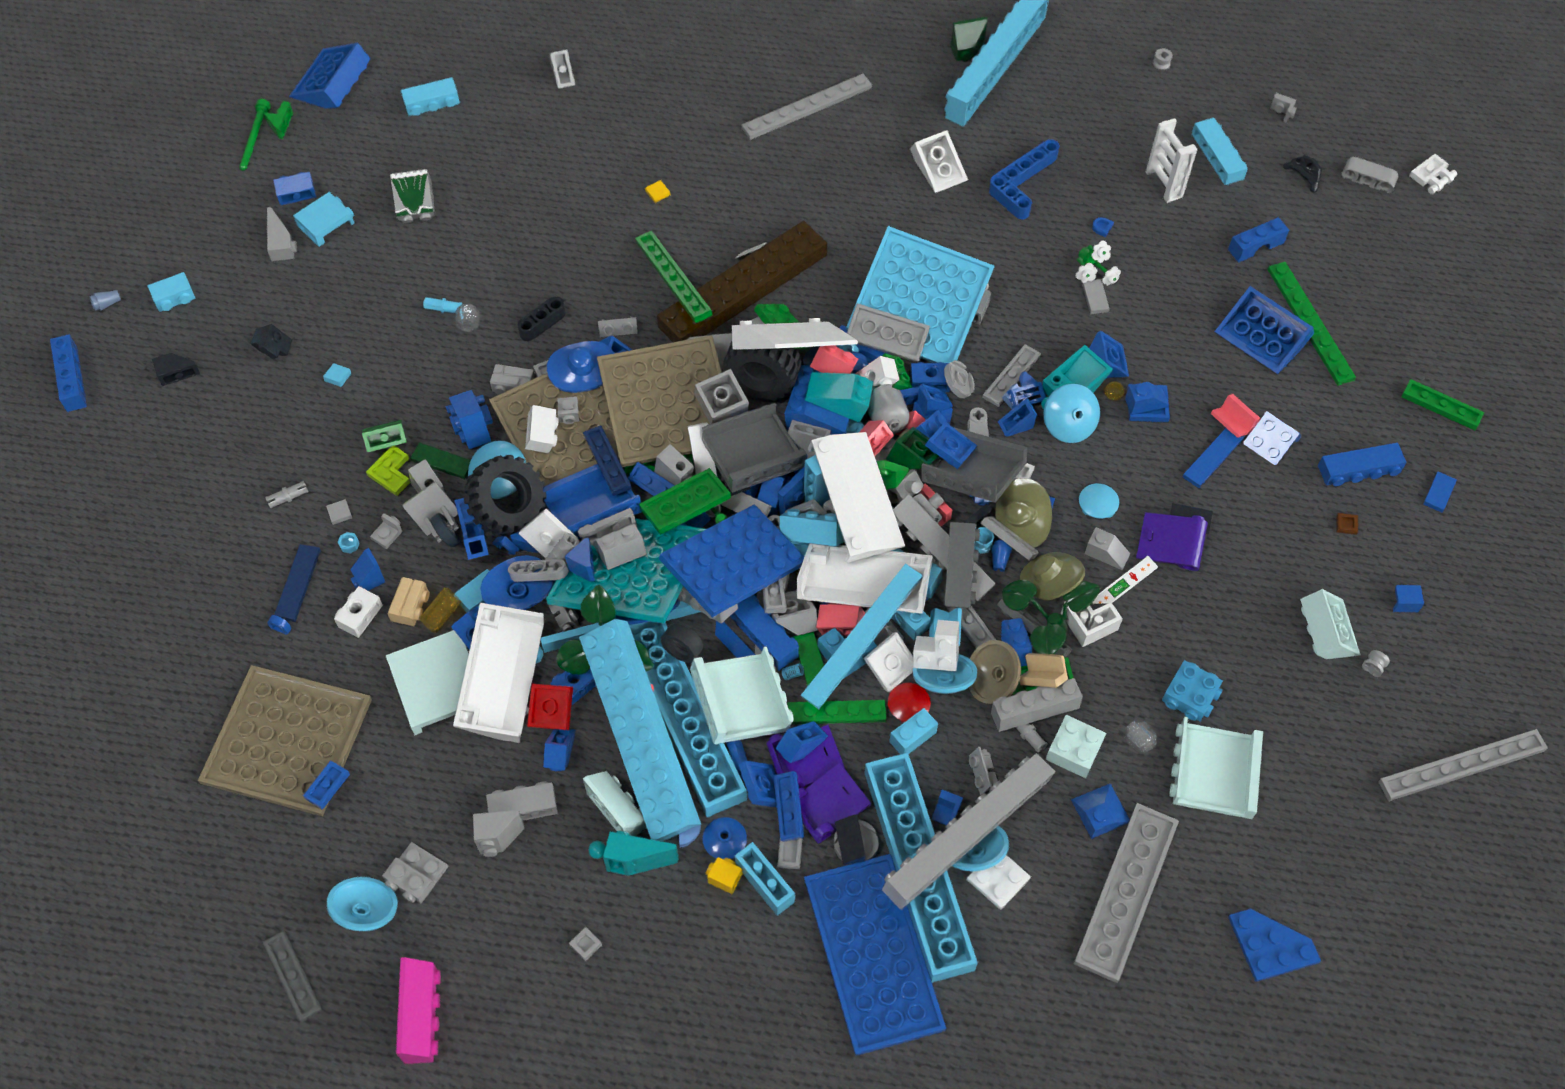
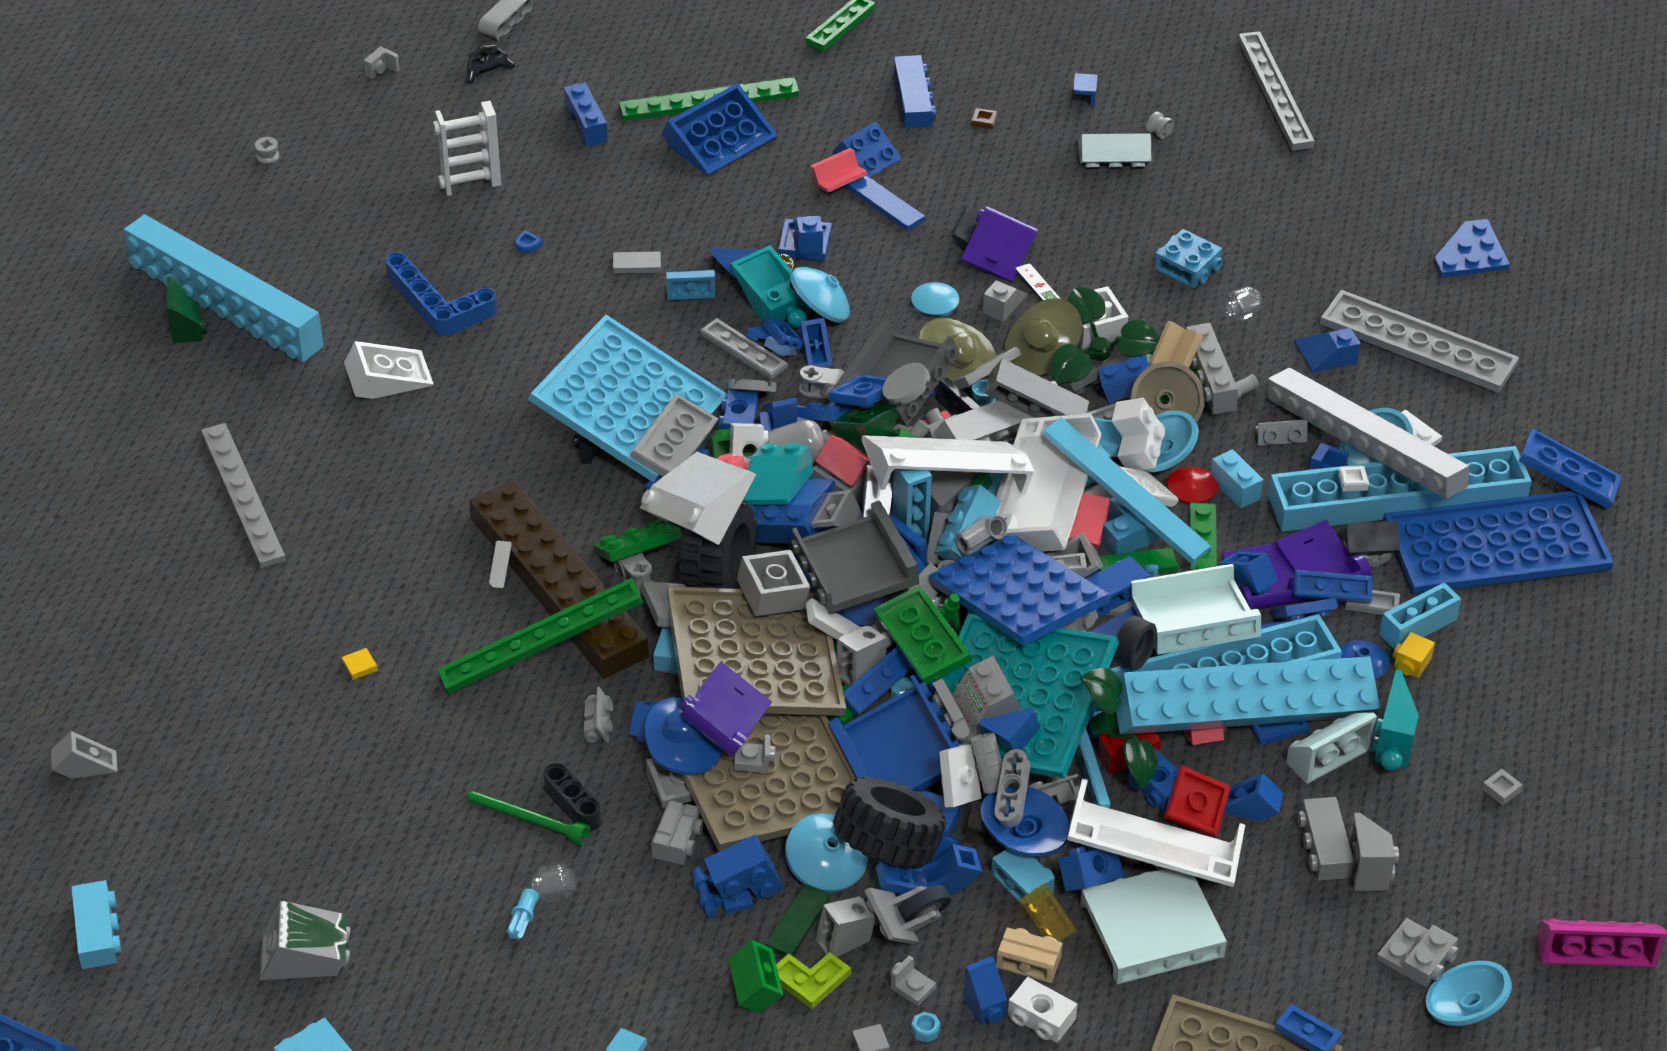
camera: 85 degrees left, 15 degrees down
(512, 324) = (572, 831): none -> green piece
(541, 429) = (786, 780): white brick -> none
(588, 378) = (725, 708): none -> dark purple door
(607, 460) = (837, 722): dark blue tile -> none
(794, 532) = (980, 533): none -> light grey piece
(908, 817) = (1353, 478): none -> white tile
(945, 463) = (906, 383): none -> light grey tile
(966, 1017) = (1570, 468): none -> blue tile
(1070, 330) = (690, 285): none -> dark azure bracket
(1075, 746) = (1255, 352): light aqua brick -> none
(1090, 256) = (579, 257): white plant -> none
(1217, 770) = (1280, 254): light aqua panel -> none
(1219, 151) = (417, 127): medium azure brick -> none
(1440, 492) = (951, 47): blue tile -> none

